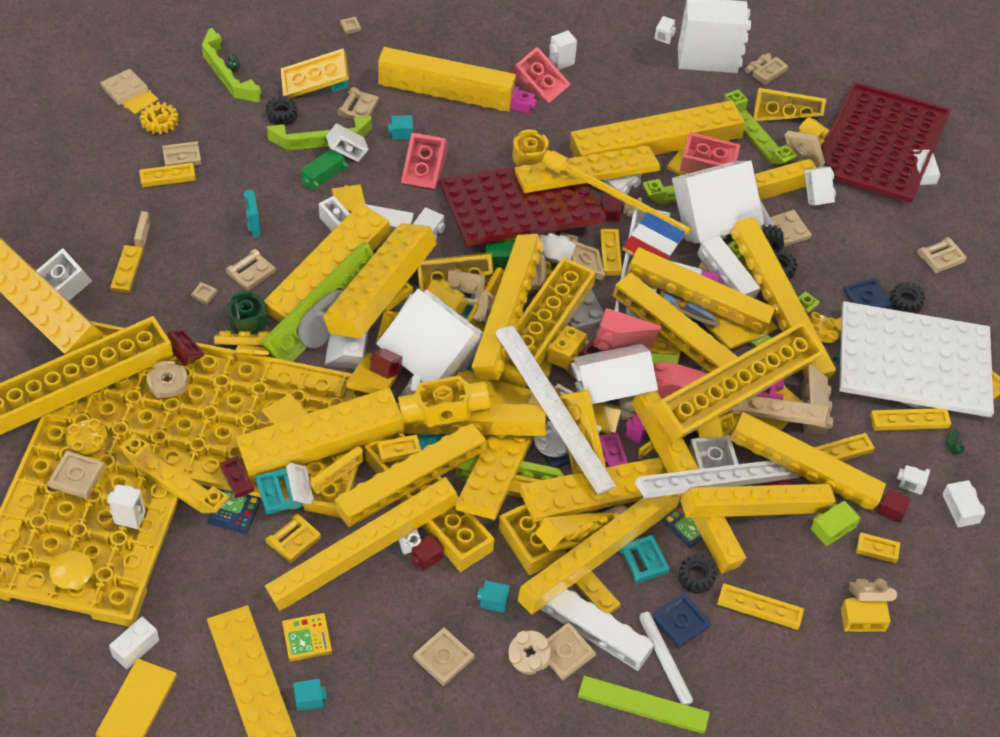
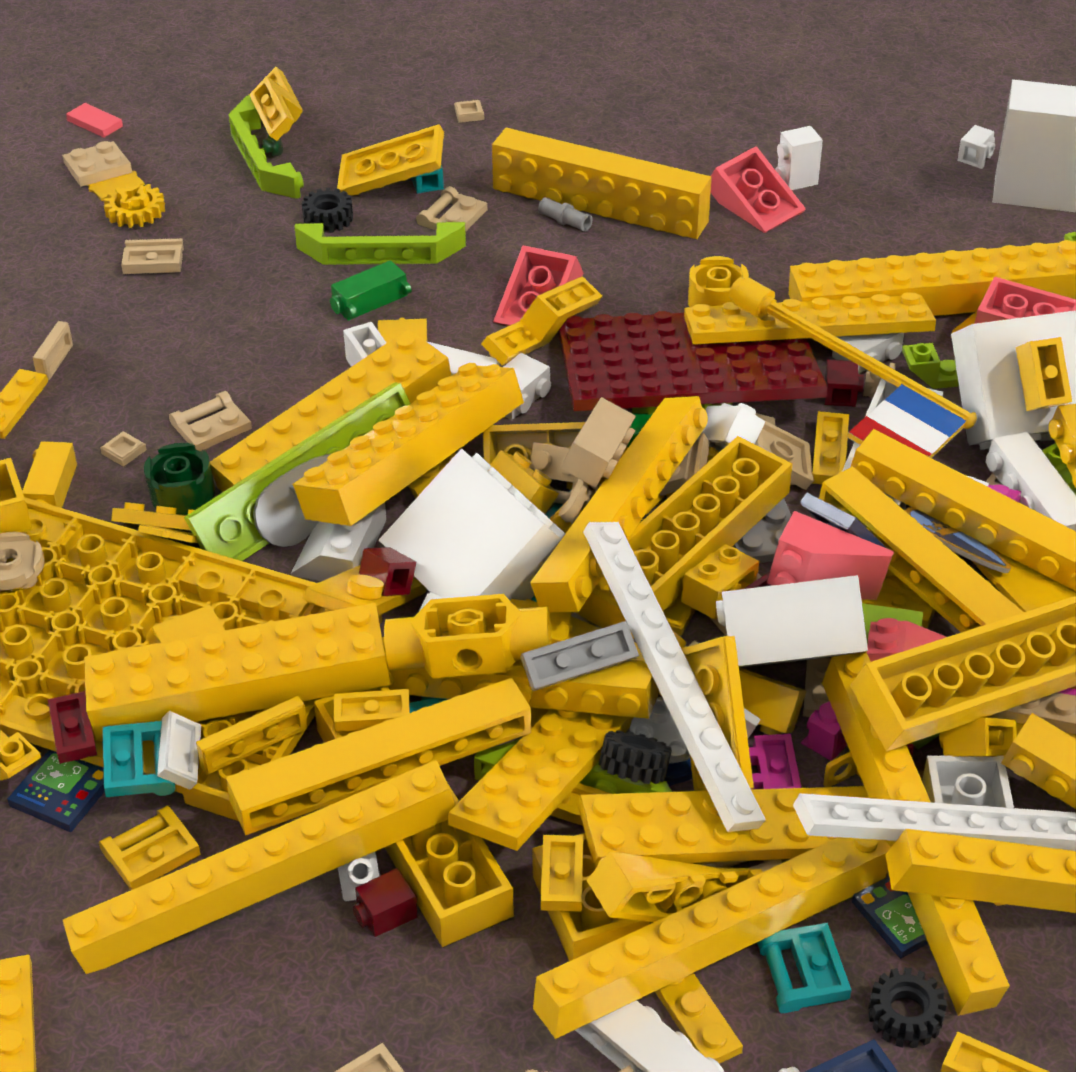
camera: 15 degrees right, 10 degrees down
(111, 51) = (94, 120): none -> coral tile
(167, 175) = (121, 280): yellow plate -> none
(168, 313) = (51, 473): none -> yellow brick
(184, 347) = (54, 516): dark red slope -> none
(229, 33) = (276, 103): none -> yellow bracket
(252, 213) = (231, 336): teal plate -> none
(306, 637) = (120, 1028): yellow tile -> none
(347, 142) = (415, 254): white brick -> none
(377, 375) = (365, 587): none -> yellow tile
(400, 127) = (509, 242): teal brick -> none
(427, 101) = (565, 214): none -> light grey pin
(433, 183) = (541, 320): none -> yellow bracket
(489, 272) = (599, 443): none -> tan brick
(493, 596) = (494, 998): teal brick -> none
(506, 407) = (579, 656): none -> light grey plate
(519, 528) = (562, 873): none -> yellow plate
(523, 101) = (720, 224): dark pink brick -> none
(541, 457) = (635, 757): none -> black tyre
(628, 309) = (837, 518): none -> tile
(727, 204) = (1043, 374): none -> yellow brick

